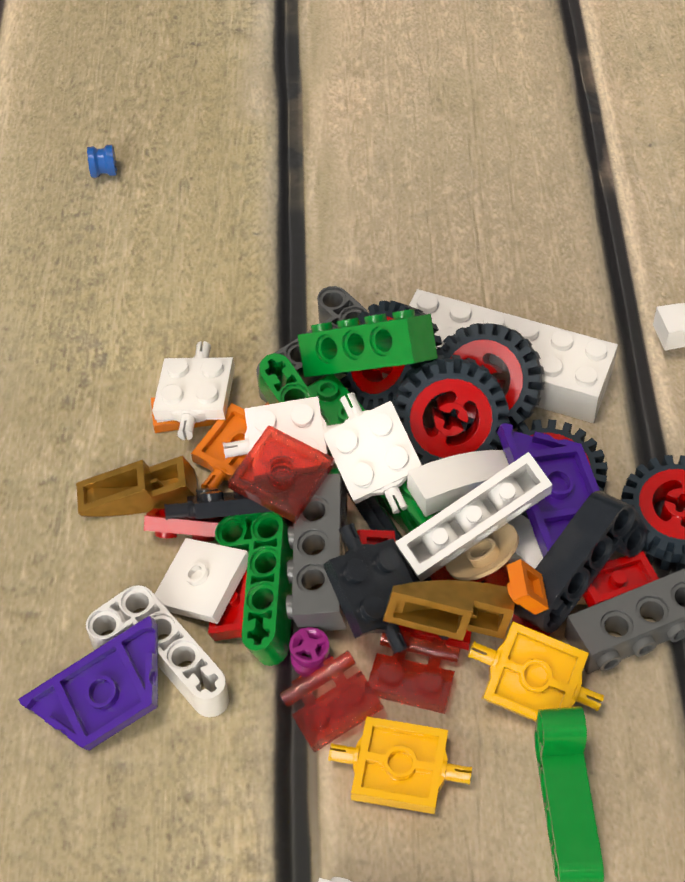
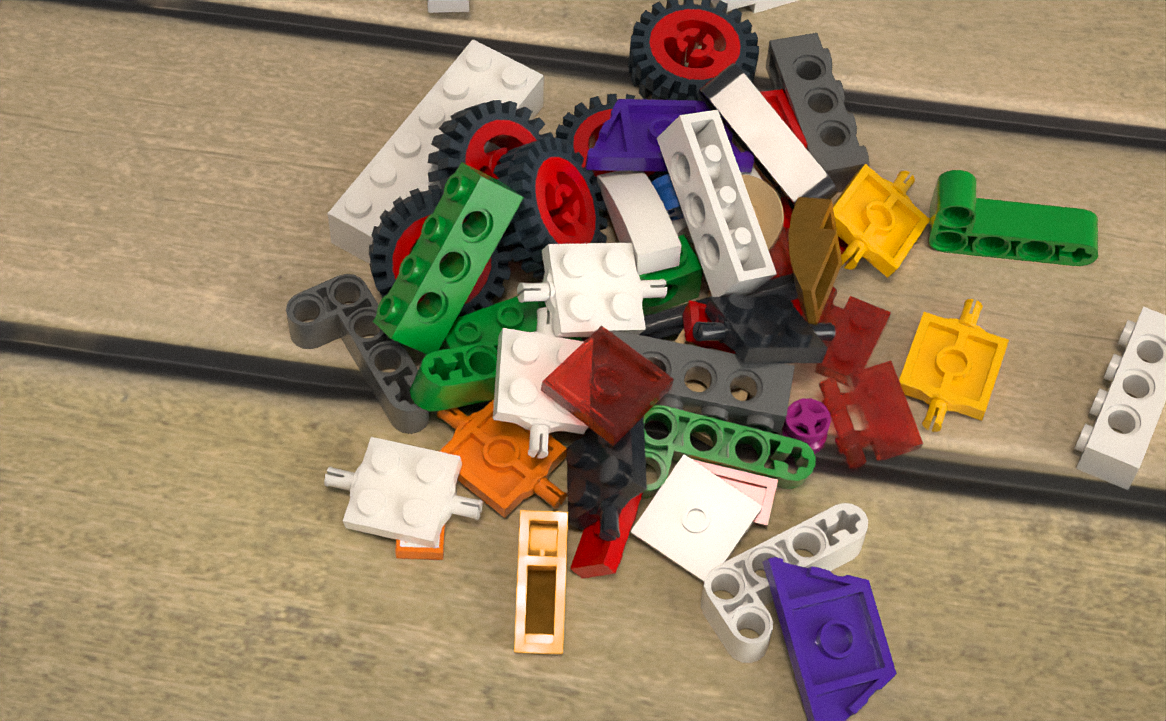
camera: 85 degrees left, 5 degrees up
(527, 587) = (808, 182): orange plate -> none

